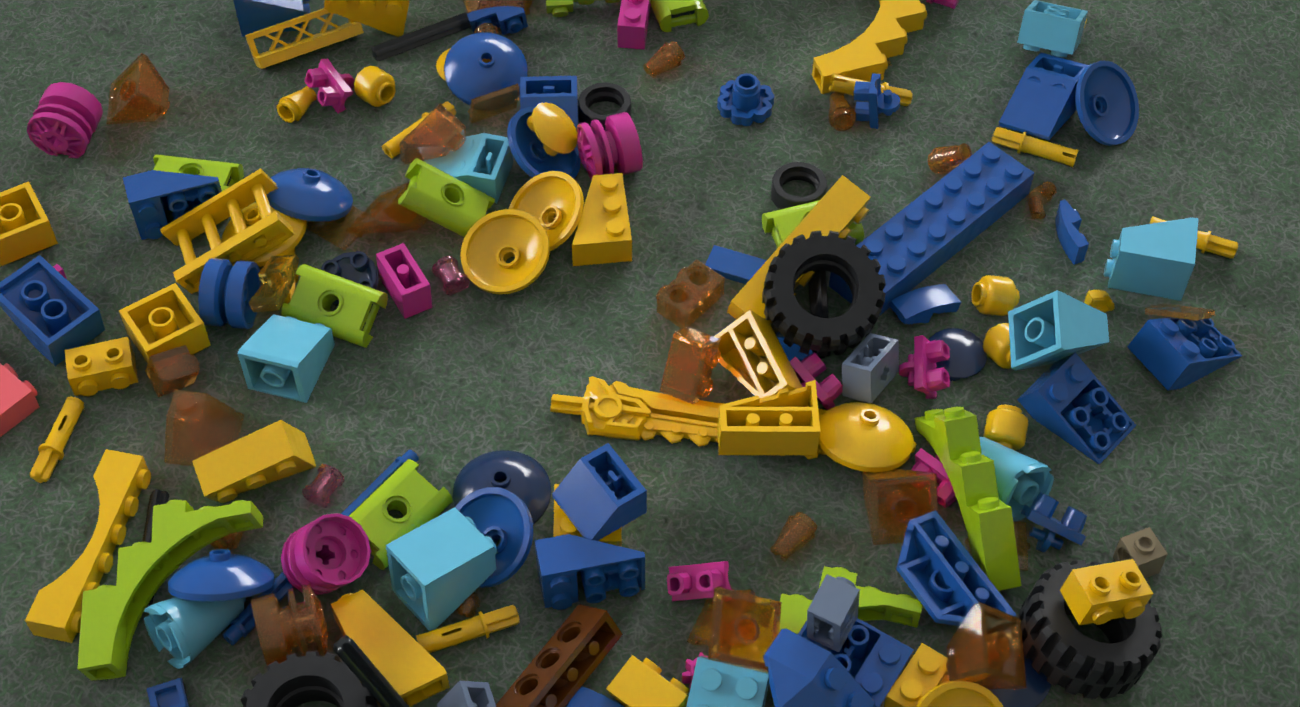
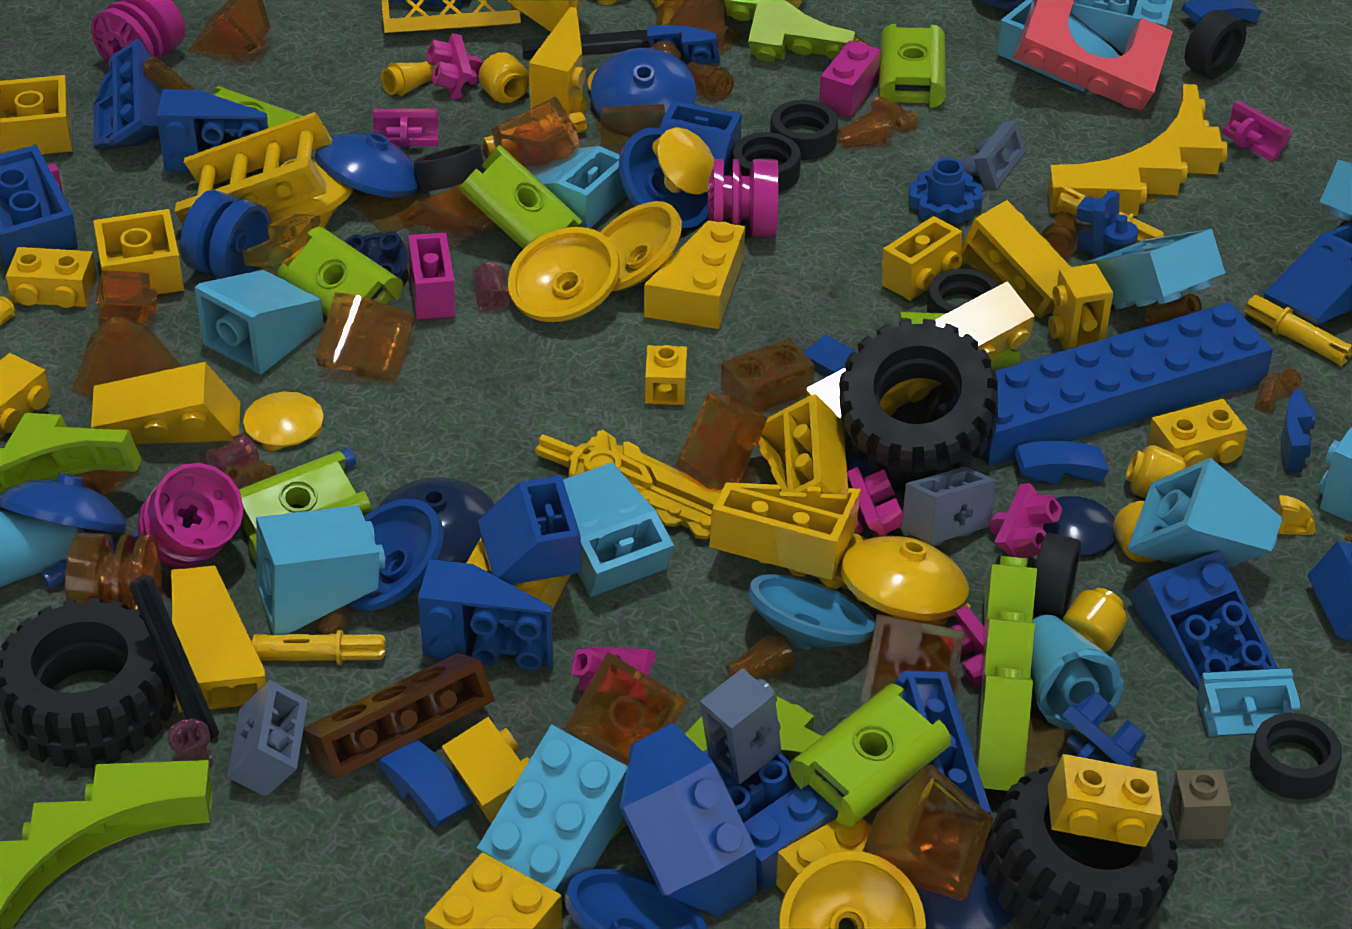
camera: 20 degrees right, 10 degrees down
(86, 187) = (126, 101): none -> blue wedge
(113, 161) = (163, 75): none -> clear orange axle
(318, 150) = (407, 126): none -> dark pink hips
(344, 438) = (283, 420): none -> yellow dish
(345, 493) = (249, 473): none -> clear orange arm
(372, 179) = (448, 166): none -> black tyre
(378, 350) = (365, 337): none -> clear orange slope
(421, 72) = (558, 67): none -> yellow slope
(532, 45) = (712, 80): none -> clear orange cone
(616, 314) = (666, 375): none -> yellow brick
(620, 56) = (809, 114): none -> black tyre
(648, 454) = (617, 530): none -> medium azure slope
(686, 42) = (899, 119): none -> clear orange arm
(757, 162) = (920, 257): none -> yellow brick
(768, 55) = (996, 155): none -> sand blue tile
(814, 486) = (810, 612): none -> dark azure dish
(826, 144) = (1013, 251): none -> yellow wedge
(889, 175) = (1080, 306): none -> yellow brick
(911, 621) = (859, 782): none -> lime piece
(929, 129) = (1161, 268): none -> medium azure brick
(968, 391) = (1055, 574): none -> black tyre
(1009, 254) = (1200, 433): none -> yellow brick
(1133, 462) = (1242, 700): none -> medium azure hinge
(1172, 512) = (1291, 781): none -> black tyre

